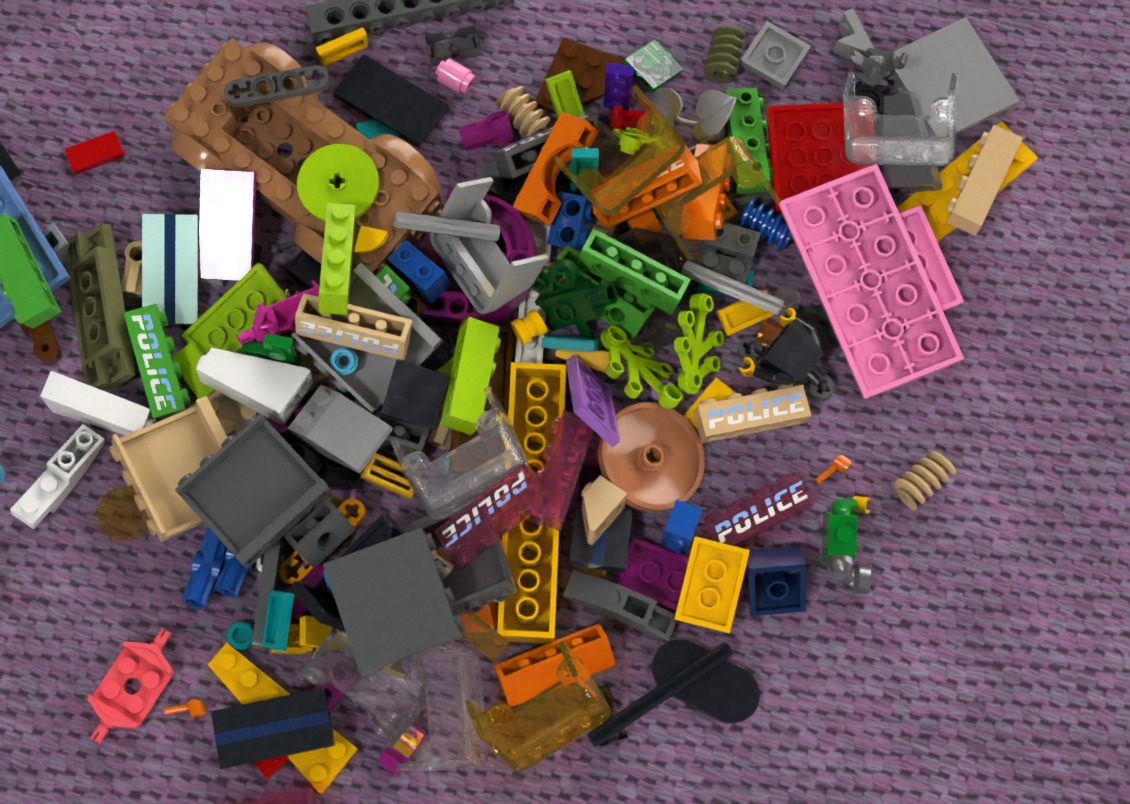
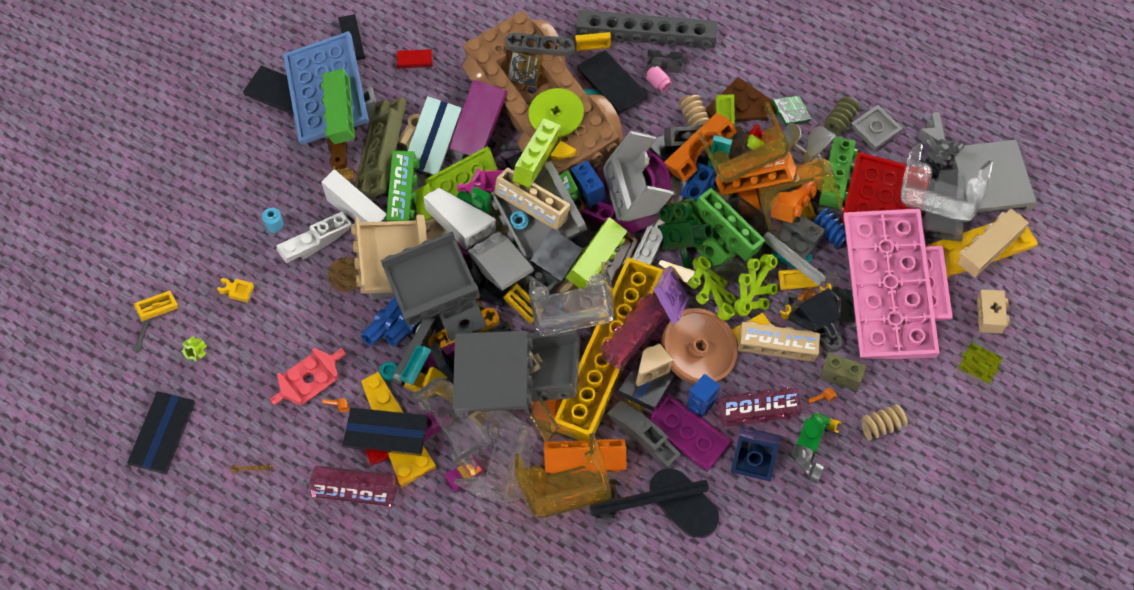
camera: 25 degrees right, 10 degrees down
(63, 365) = (345, 172): none -> clear yellow brick
(266, 127) = (524, 69): none -> piece
(446, 226) = (616, 159): light grey axle -> none
(493, 514) = (578, 341): clear pink brick -> none
(494, 130) = (666, 117): magenta piece -> none
(528, 327) = (647, 240): yellow wheel -> none
(571, 343) = (672, 259): teal tile -> none
(617, 86) = (758, 111): dark purple plate -> none
(712, 584) = (710, 438): yellow plate -> none
(849, 427) = (843, 372): none -> olive brick
(1008, 287) = (992, 311): none -> tan brick
(1017, 351) = (980, 362): none -> clear neon green piece

